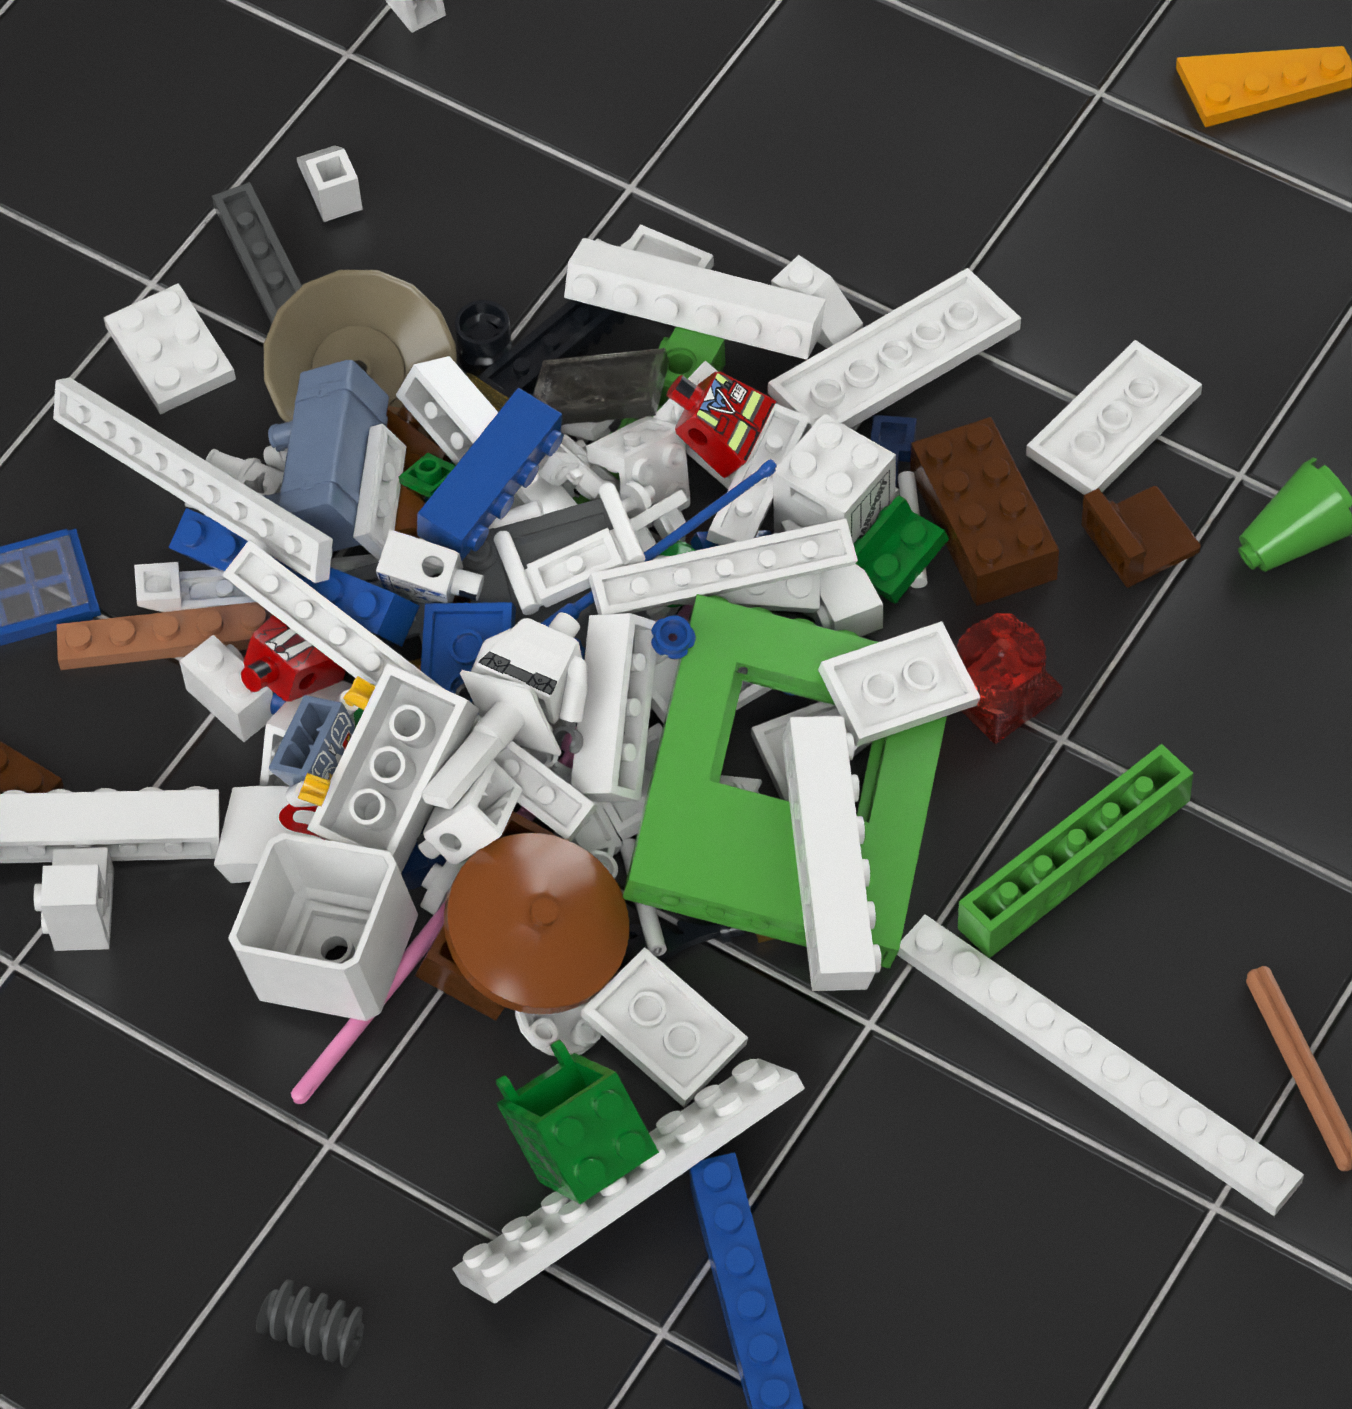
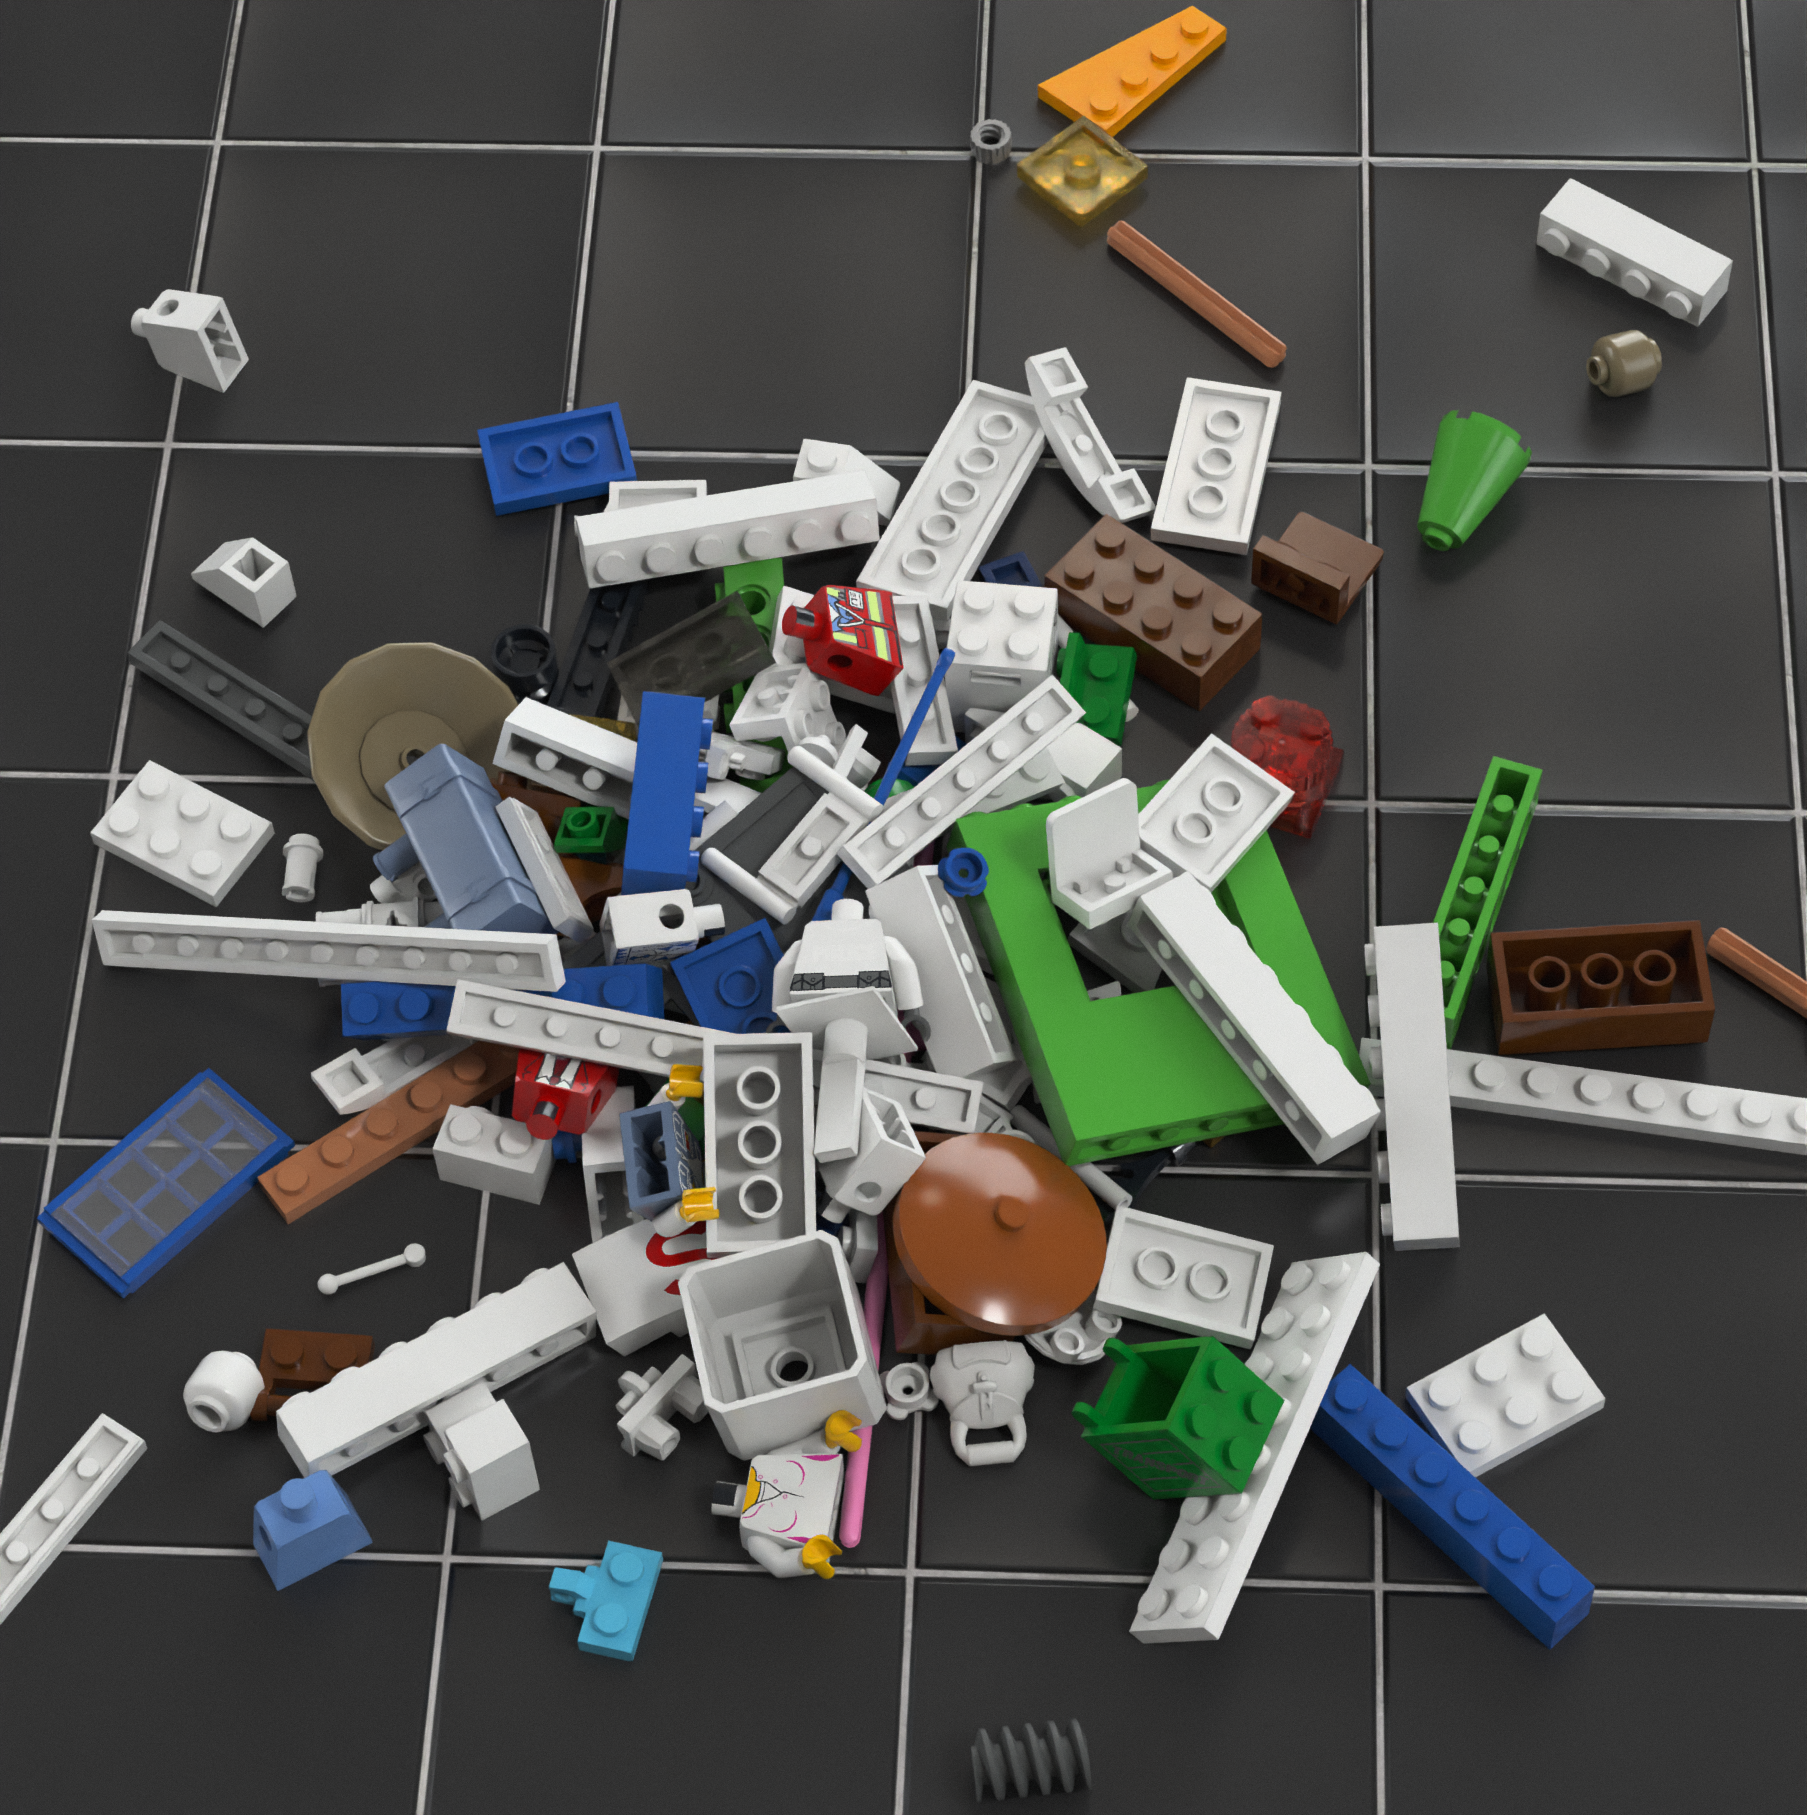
camera: 30 degrees left, 0 degrees up
(104, 1052) = (610, 1598): none -> medium azure hinge
(130, 734) = (413, 1256): none -> white hinge
(210, 932) = (652, 1401): none -> white hips
(239, 405) = (302, 858): none -> white pin
(271, 1047) = (793, 1501): none -> white torso
(407, 998) = (905, 1375): none -> white plate
(461, 1036) = (984, 1390): none -> white piece
(615, 189) = (556, 458): none -> blue plate
(781, 670) = (1098, 855): none -> white bracket
(850, 1241) = (1505, 1396): none -> white plate
(924, 968) = (1415, 1087): none -> white brick
(1016, 351) = (1078, 443): none -> white slope
(1114, 77) = (992, 130): none -> light grey axle
(1130, 964) = (1599, 987): none -> reddish brown brick
(1165, 141) = (1082, 171): none -> clear yellow plate
(1192, 278) = (1196, 294): none -> nougat axle

